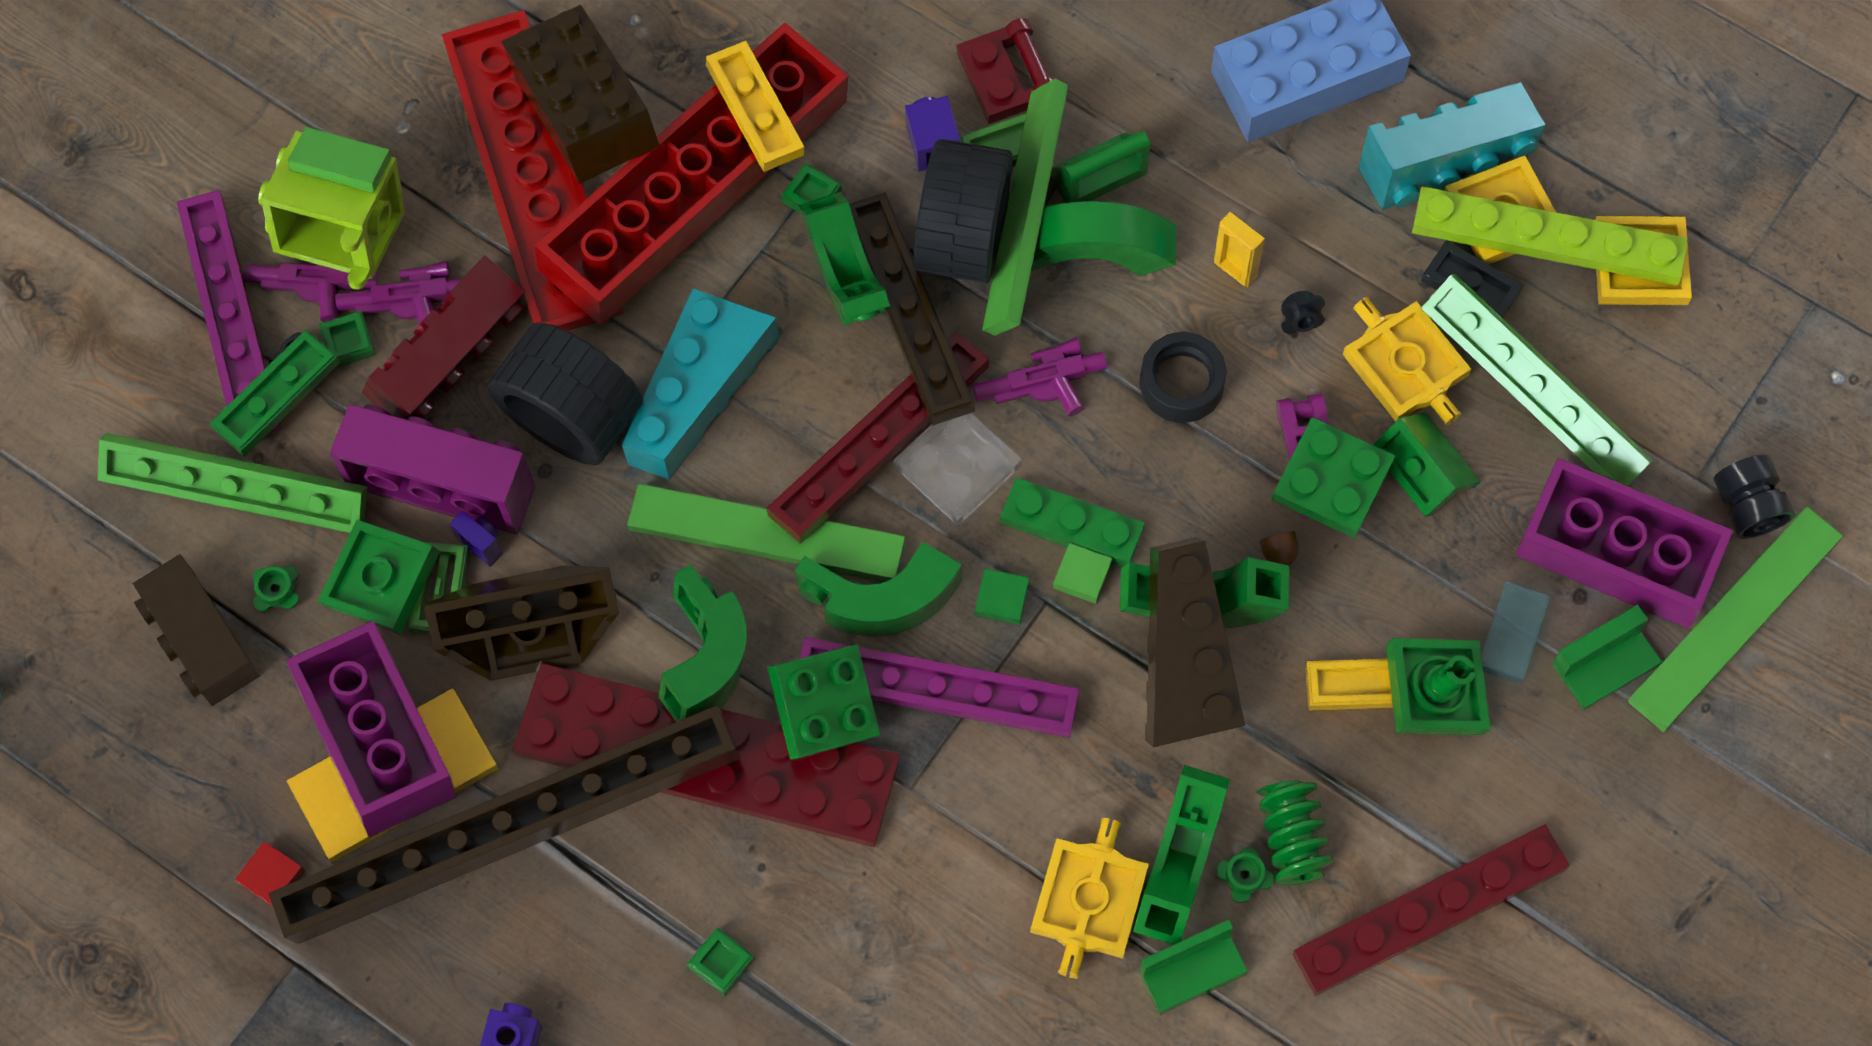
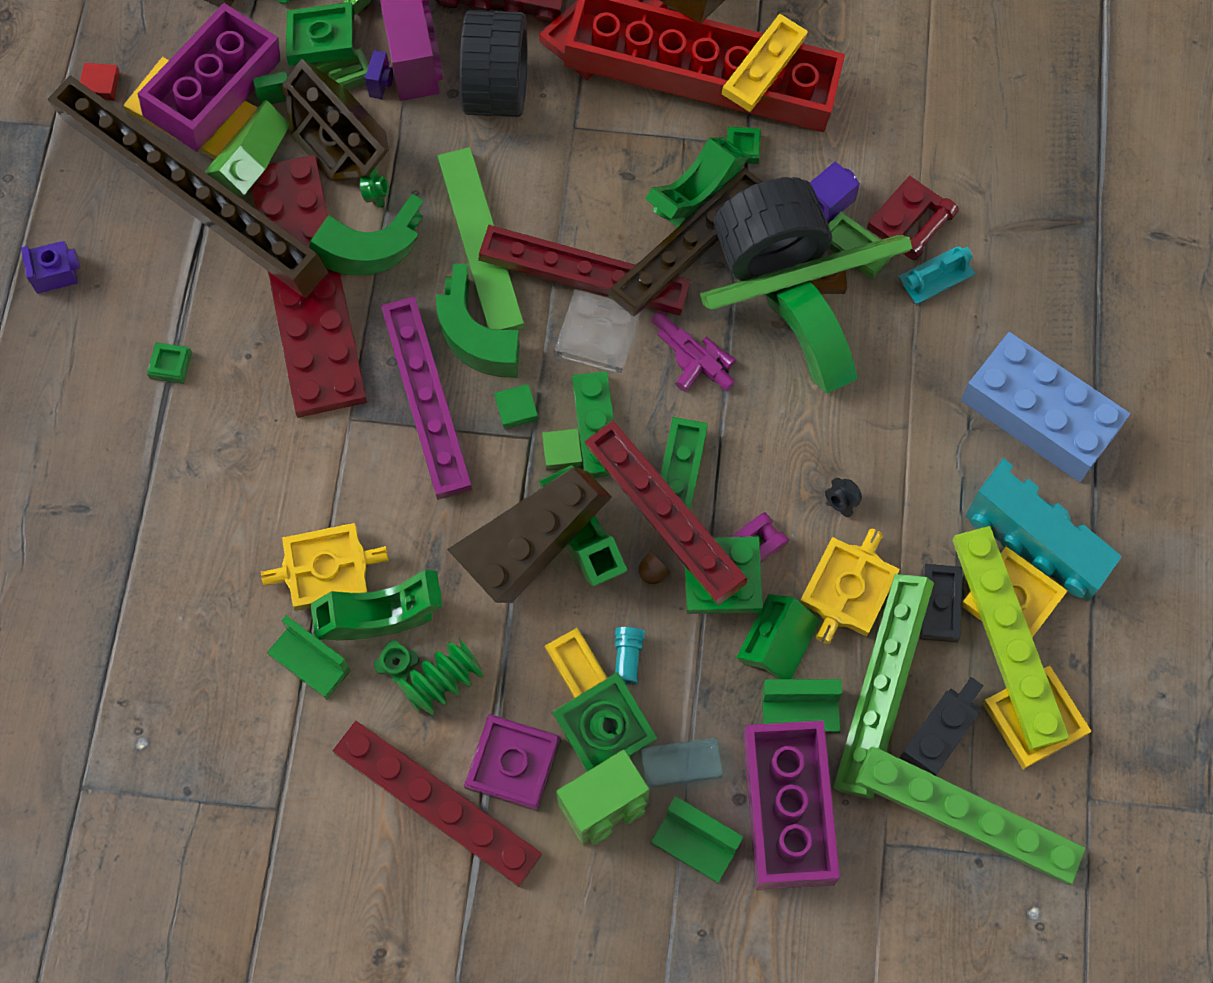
camera: 60 degrees right, 0 degrees up
(419, 667) = (270, 87): none -> green tile
(497, 734) = (249, 150): none -> bright green slope
(632, 616) = (374, 188): none -> green plate
(698, 373) = (558, 140): teal wedge -> none
(823, 701) = (367, 325): green plate -> none
(1091, 81) = (938, 274): none -> teal hinge
(1103, 167) = (871, 311): green tile -> none
(1181, 463) = (684, 457): none -> green plate
(1191, 346) = (745, 415): black tyre -> none
(1237, 493) = (666, 513): none -> dark red plate
(1238, 249) = (859, 425): yellow tile -> none
(1357, 618) = (628, 645): none -> teal pin
(1425, 806) = (512, 762): none -> magenta tile
(1513, 481) = (802, 701): none -> green panel
(1528, 723) = (604, 798): none -> bright green brick
(1615, 356) = (943, 728): none -> black hinge
(1716, 378) = (970, 815): none -> bright green plate
(1734, 619) = (785, 922): bright green tile -> none
(1752, 492) = (887, 887): black wheel -> none

